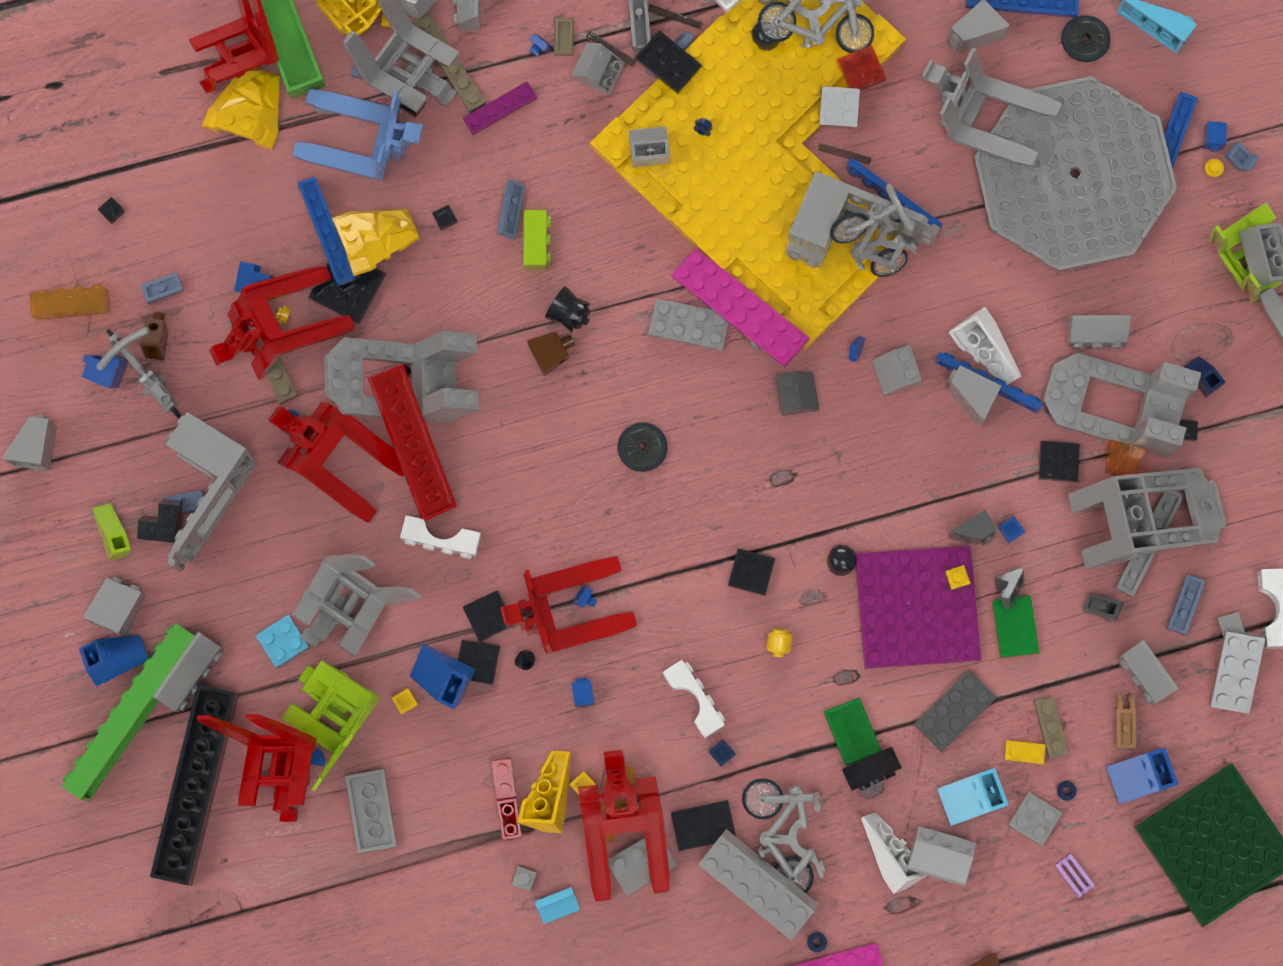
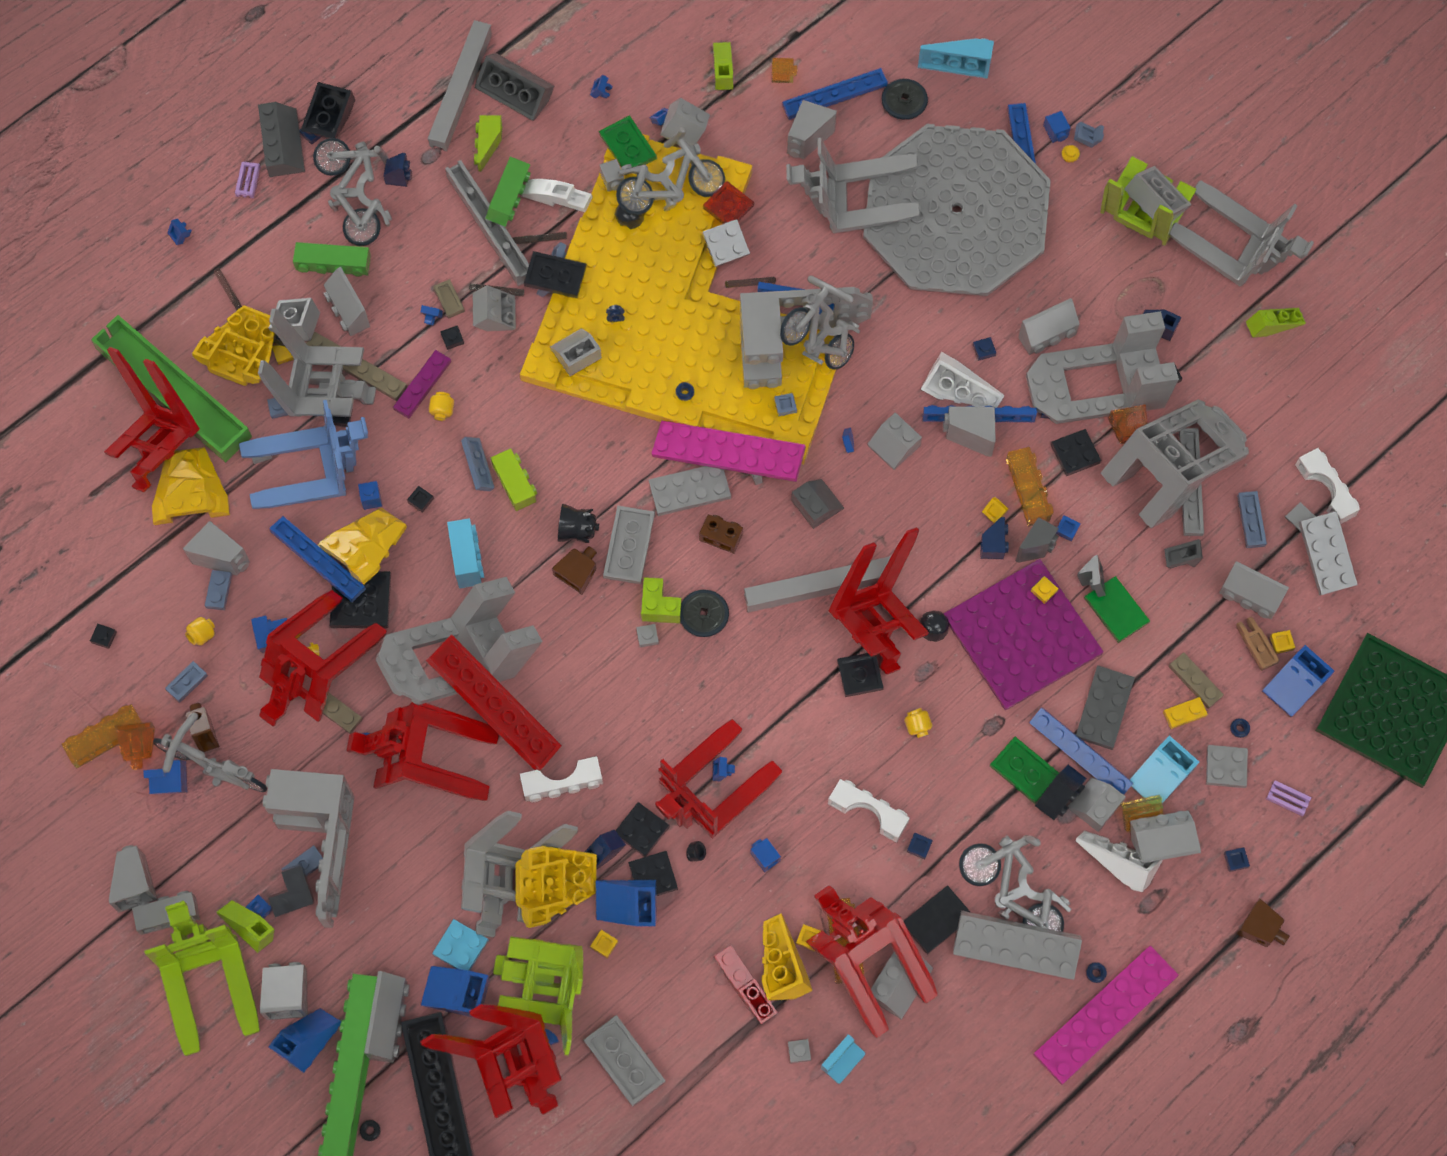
camera: 30 degrees left, 10 degrees down
(49, 487) = (154, 917): none -> light grey brick
(62, 536) = (195, 954): none -> lime piece
(92, 323) = (135, 742): none -> clear orange torso
(124, 761) = (367, 1124): none -> black plate
(129, 521) = (259, 906): none -> blue tile
(195, 247) = (200, 631): none -> yellow head
(229, 216) = (218, 590): none -> sand blue plate
(242, 180) = (216, 551): none -> light grey slope
(258, 679) = (455, 990): none -> blue slope
(384, 627) = (552, 881): none -> yellow wedge
(401, 193) = (370, 495): none -> blue brick
(443, 618) = (606, 847): none -> dark blue slope
(457, 289) = (465, 553): none -> medium azure brick
(505, 138) = (441, 406): none -> yellow head
(548, 76) = (452, 337): none -> black plate
(582, 443) = (647, 635): none -> light grey plate
(602, 421) = (655, 606): none -> lime brick
(607, 351) = (629, 544): none -> light grey plate
(695, 380) = (721, 533): none -> reddish brown brick
(728, 226) = (685, 386): none -> dark blue plate
(759, 471) = (807, 586): none -> light grey tile
(780, 543) = (856, 607): none -> red piece
(813, 289) = (785, 404): none -> sand blue plate
(899, 794) = (1097, 803): none -> light grey slope
(910, 741) = (1080, 751): none -> plate
(935, 820) = (1141, 808): none -> clear yellow plate
(936, 509) = (993, 541): none -> dark blue slope
(954, 480) = (995, 509): none -> yellow plate
(996, 906) = (1236, 859): none -> dark blue plate
(997, 473) = (1029, 485): none -> clear yellow brick
(1028, 321) = (984, 348): none -> dark blue plate
(1149, 732) = (1282, 641): none -> yellow plate

